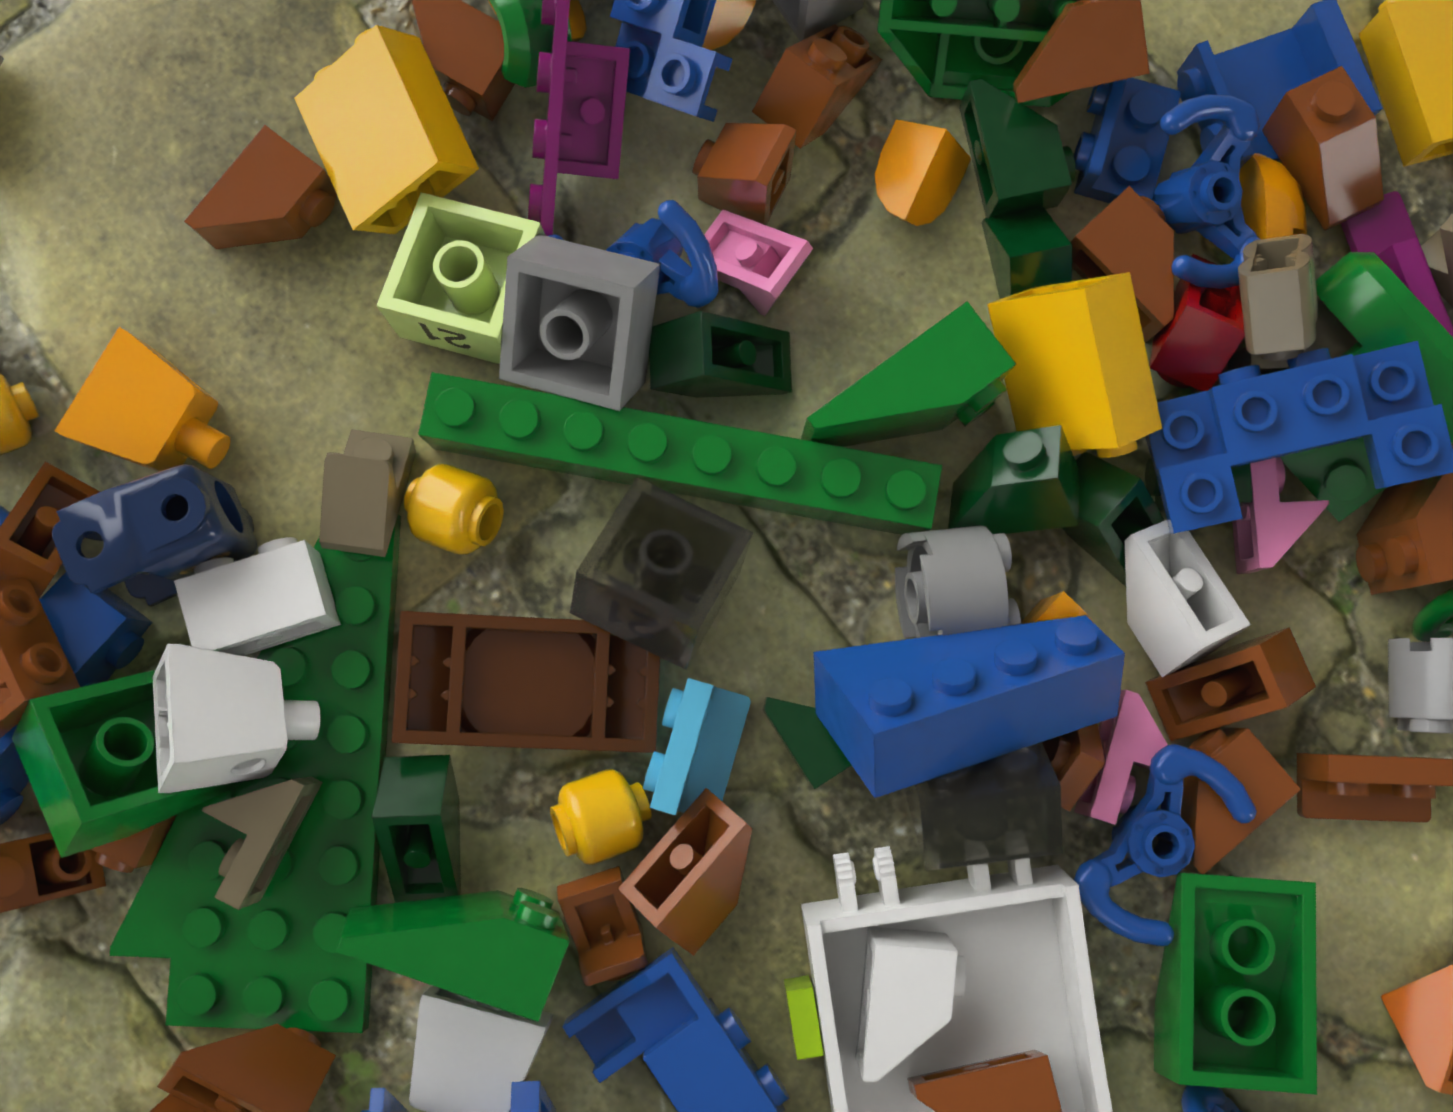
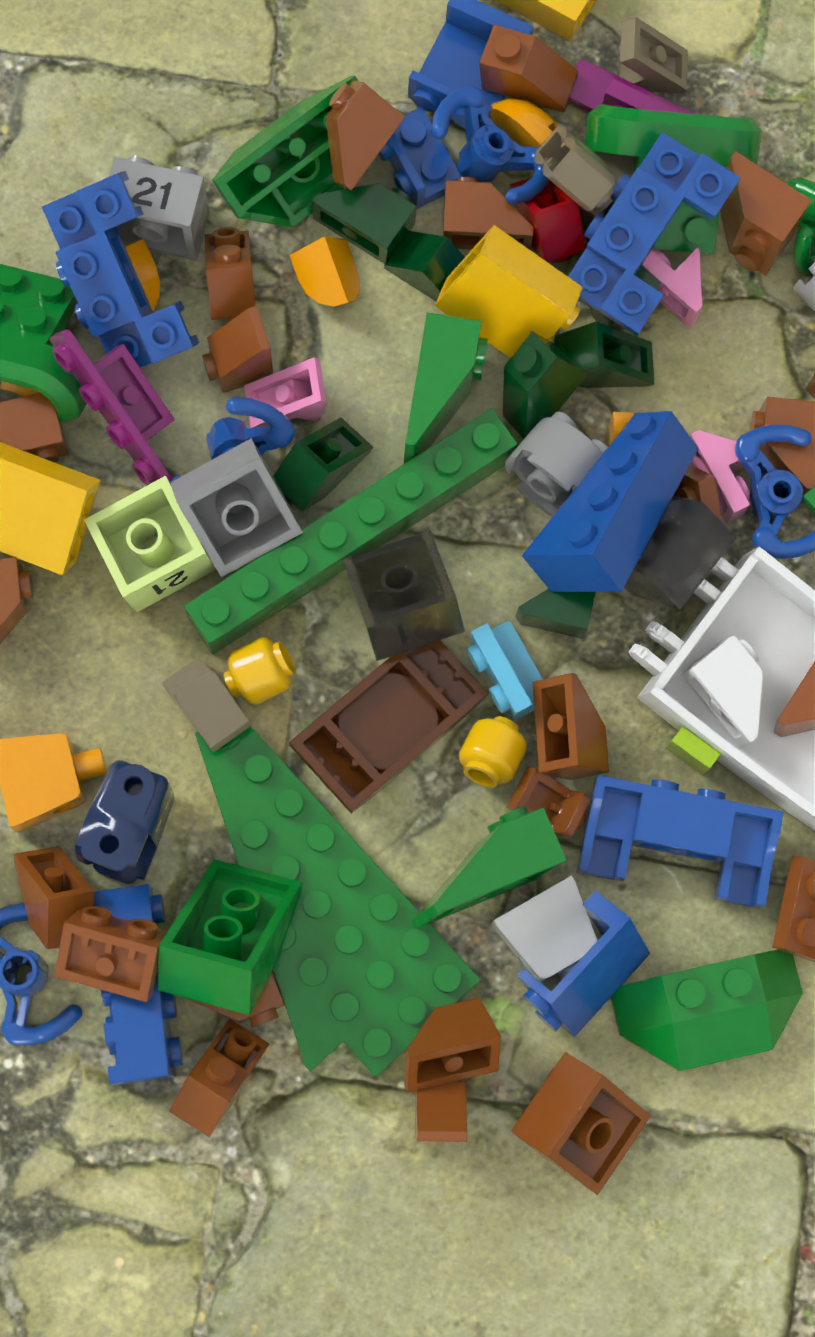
camera: 50 degrees left, 5 degrees down
(222, 718) = (255, 876): white torso -> none
(257, 599) = (209, 808): white brick -> none
(270, 821) = (327, 907): dark tan slope -> none
(419, 826) = (406, 846): dark green slope -> none
(1176, 599) = (671, 366): white slope -> none
(1232, 685) = (739, 385): dark orange slope -> none

